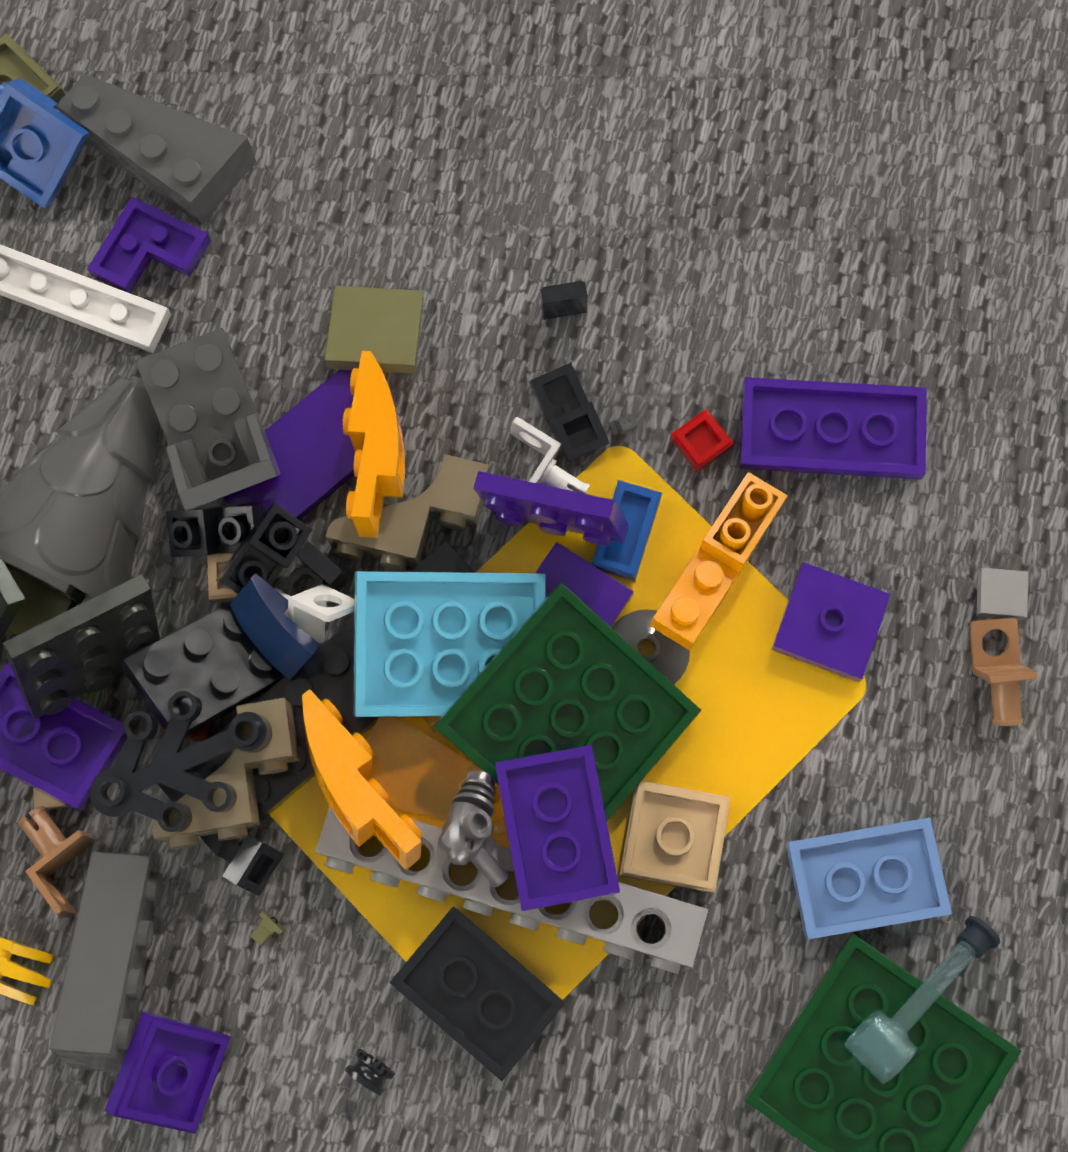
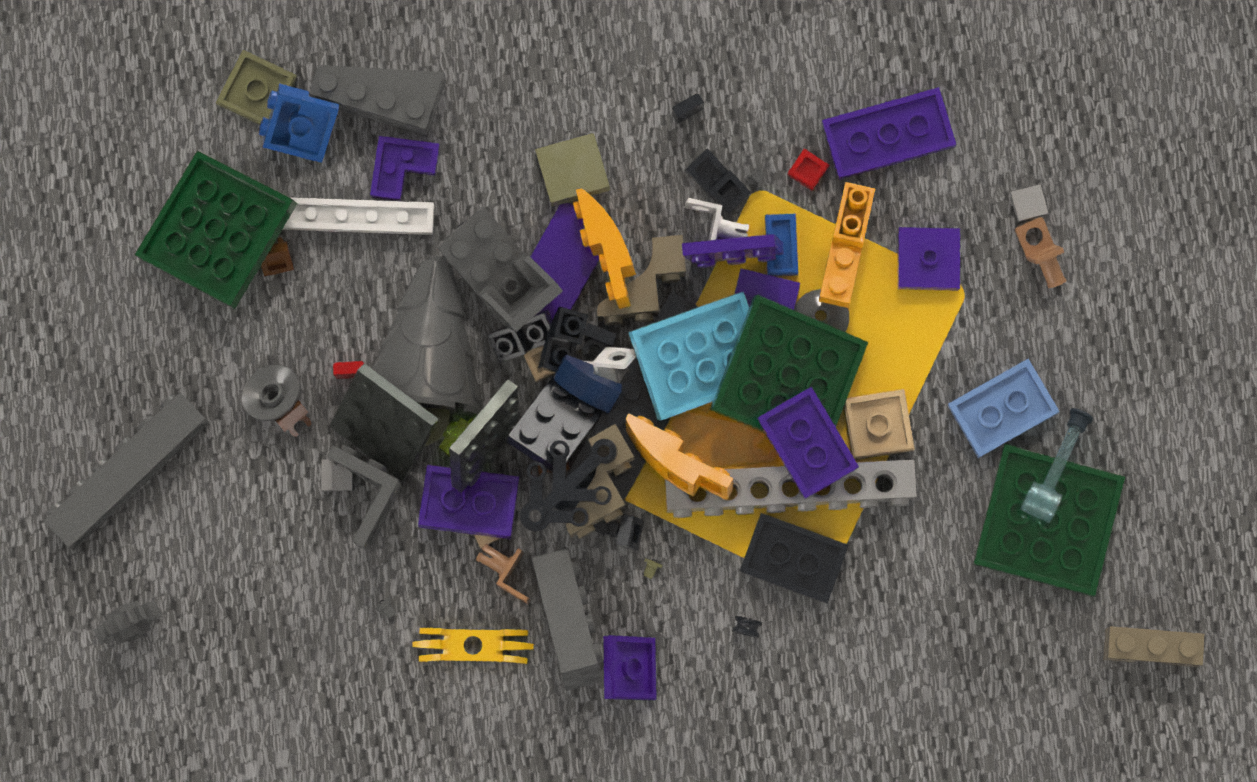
camera: 20 degrees left, 5 degrees up
(469, 827) = (756, 460): flat silver piece -> none

